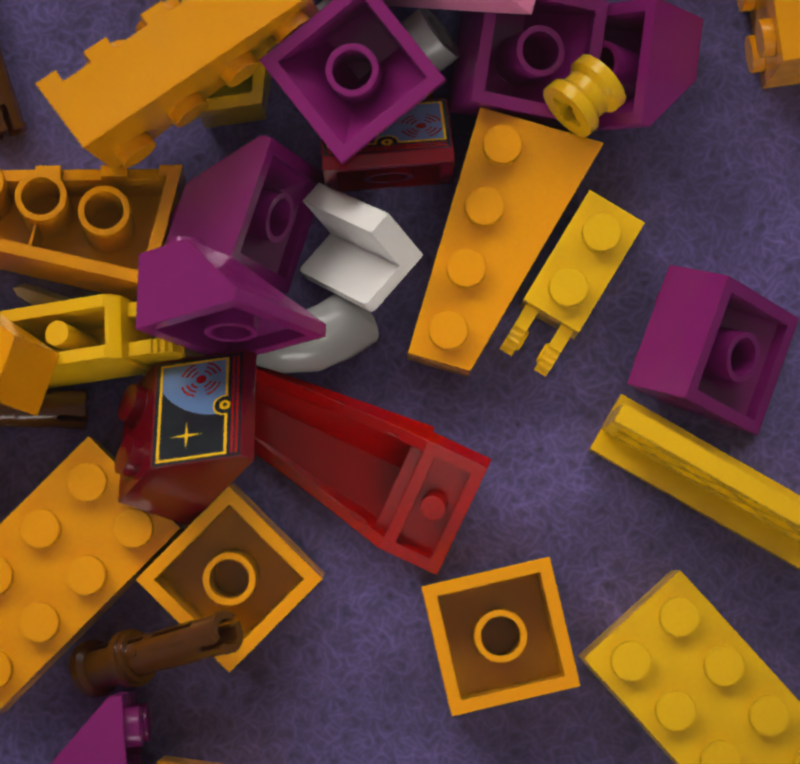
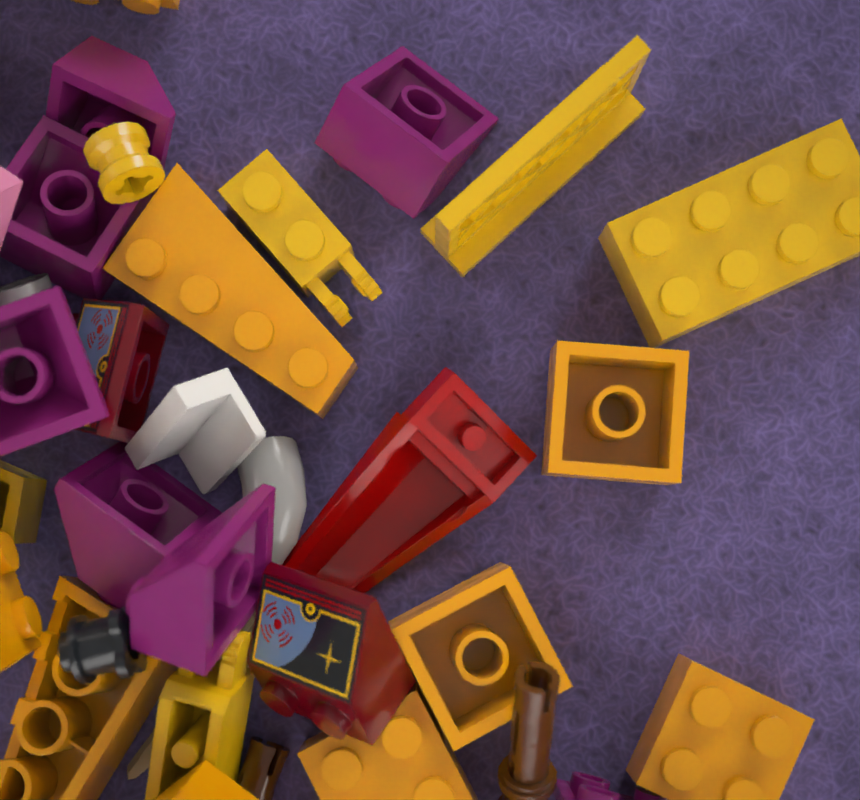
camera: 70 degrees left, 0 degrees up
(131, 225) = (99, 647): none -> black brick

